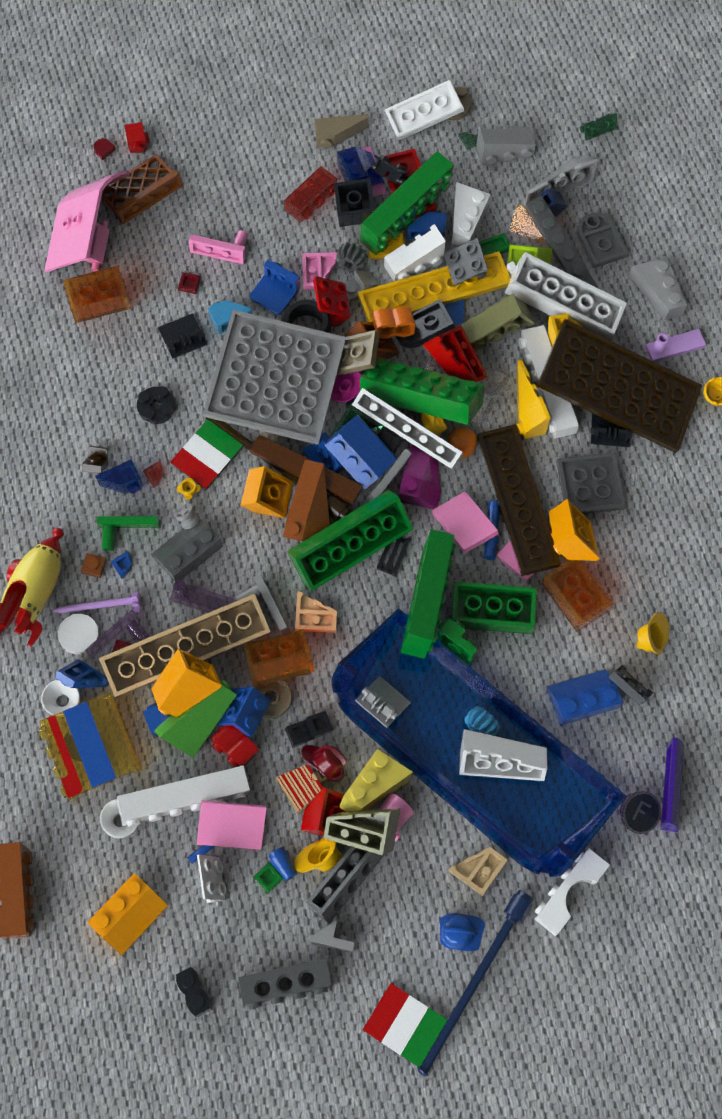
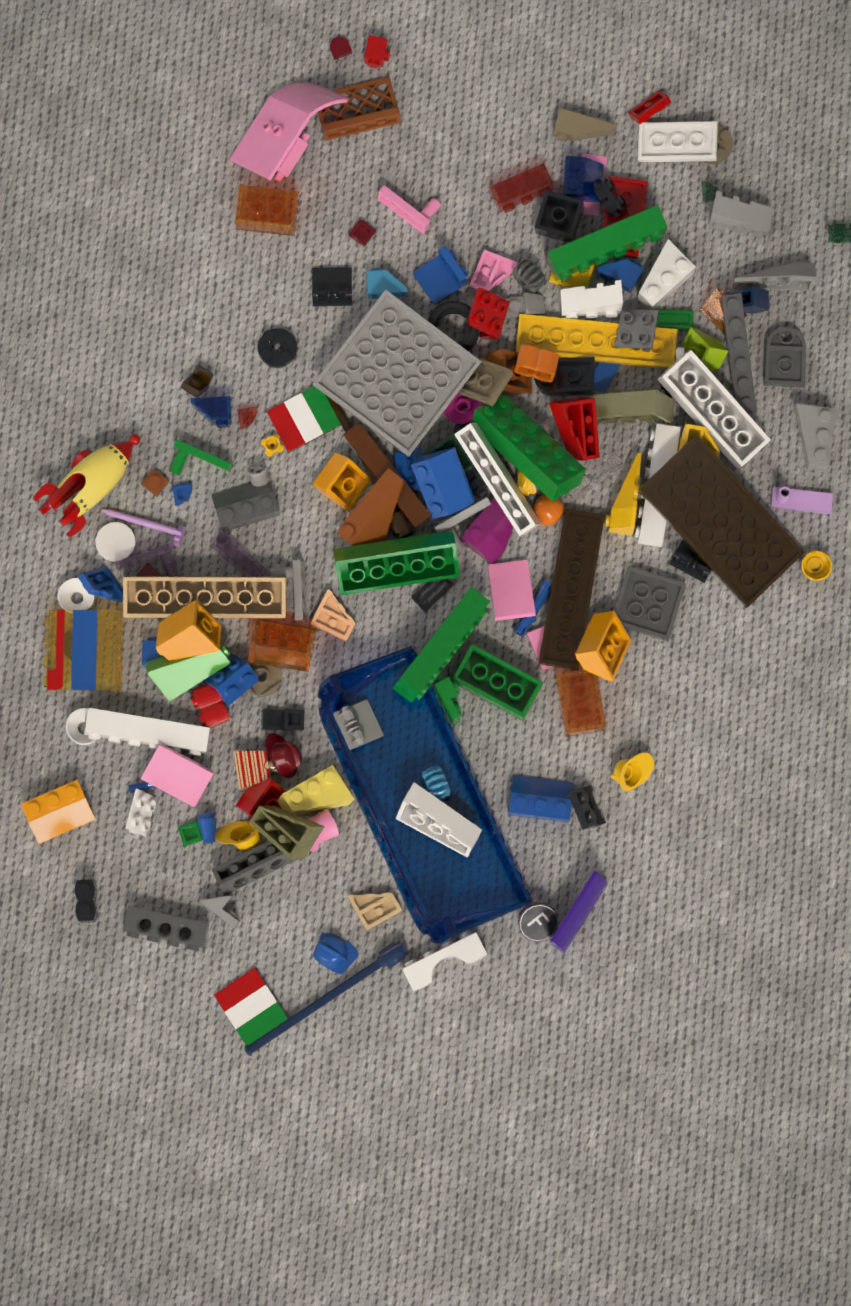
camera: 25 degrees right, 10 degrees up
(387, 94) = (649, 107): none -> red plate

